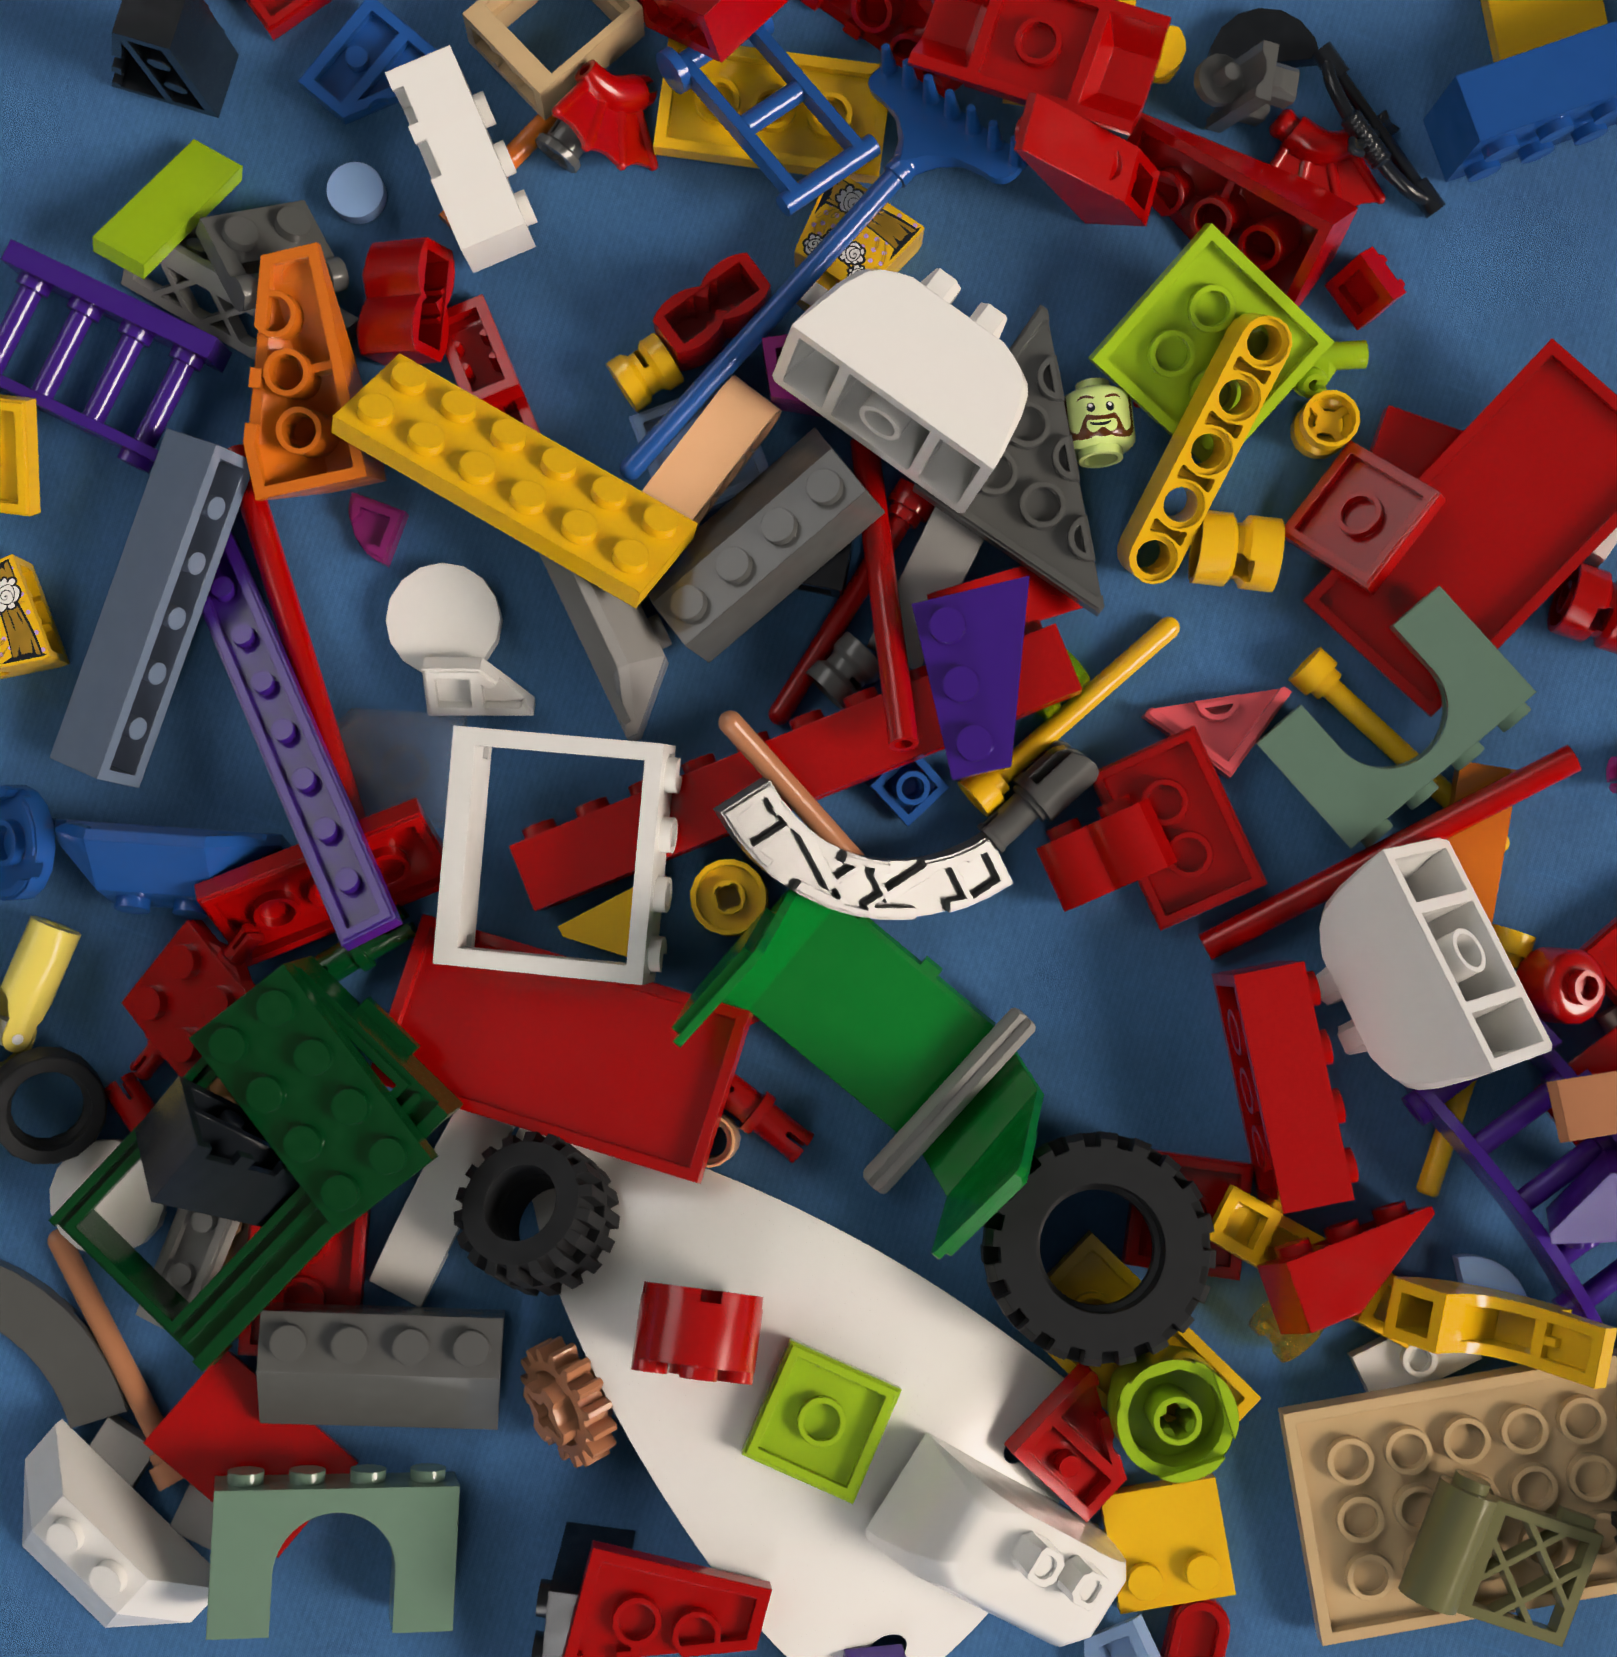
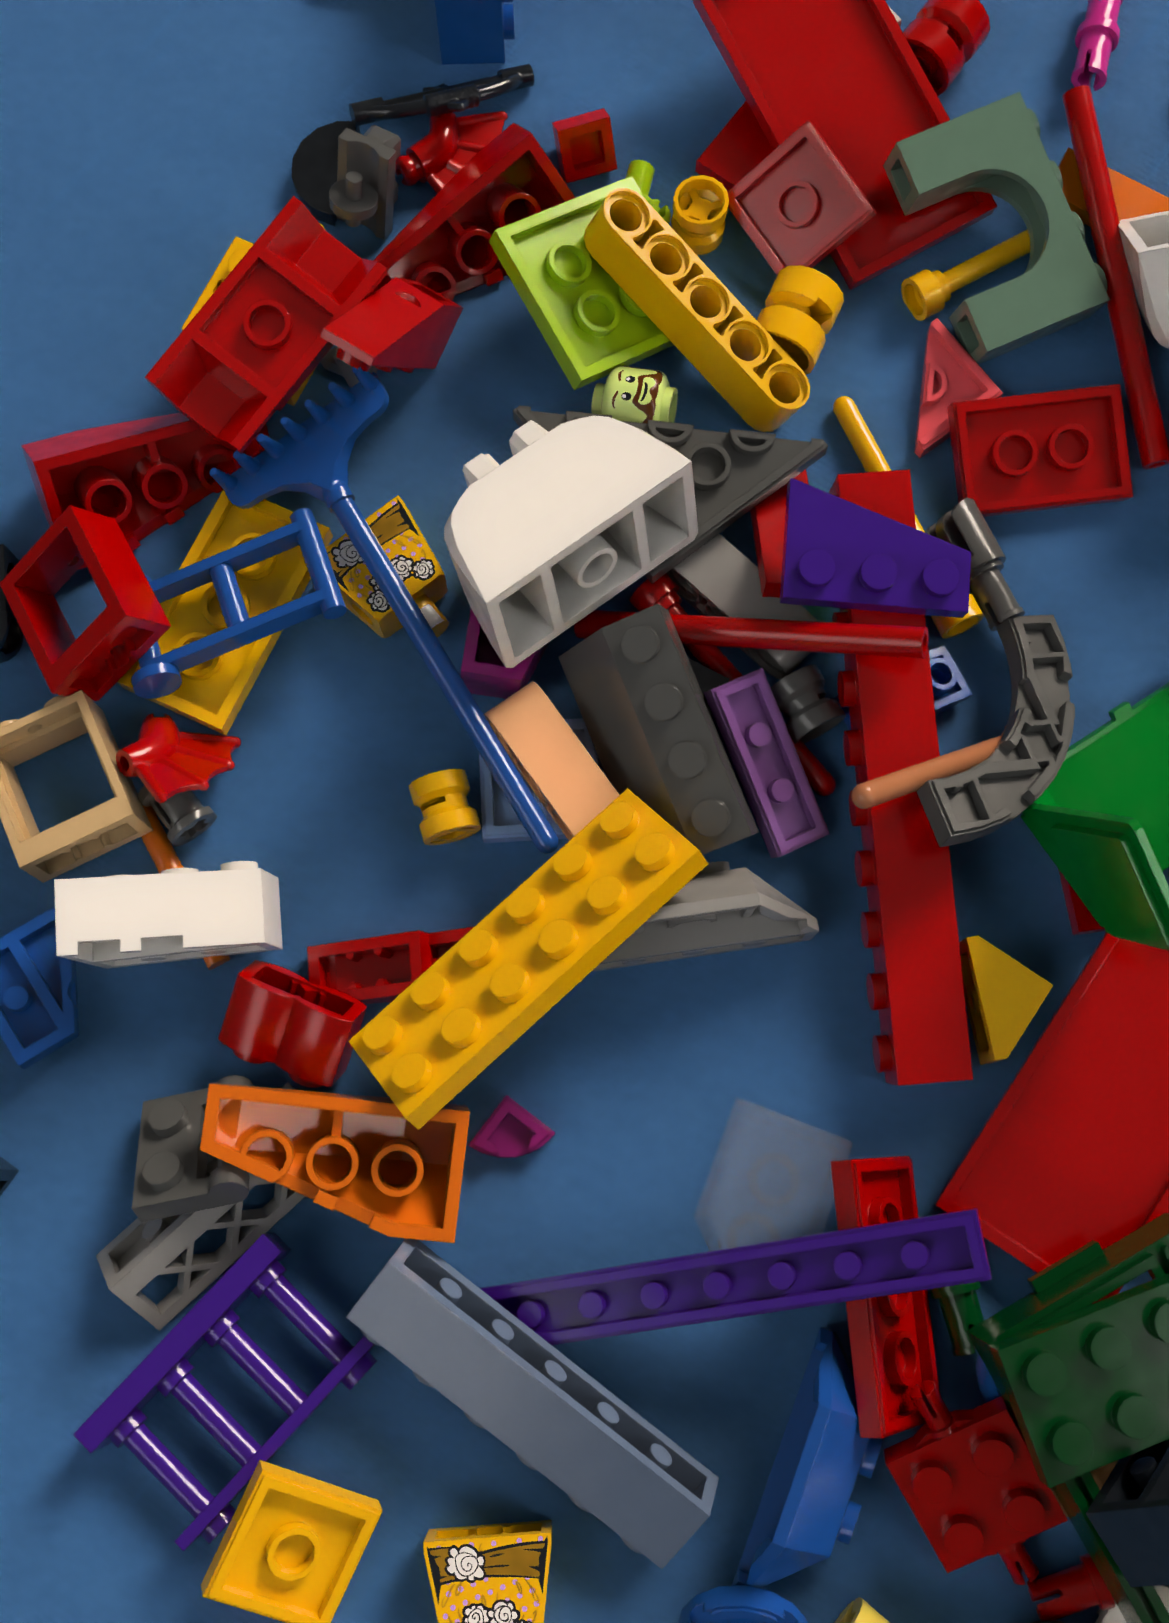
camera: 75 degrees left, 10 degrees down
(167, 209) = (105, 1248): lime tile -> none
(294, 630) = (579, 1251): red piece -> none
(356, 192) = (154, 1045): light blue tile -> none
(443, 614) = (631, 1090): white tile -> none
(464, 853) = (995, 940): white window -> none
(472, 689) = (714, 1080): white tile -> none
(702, 317) = (408, 710): red brick -> none
(728, 897) = (1007, 880): yellow wheel -> none
(777, 648) = (766, 763): none -> medium lavender tile
(1106, 853) = (1053, 516): red brick -> none

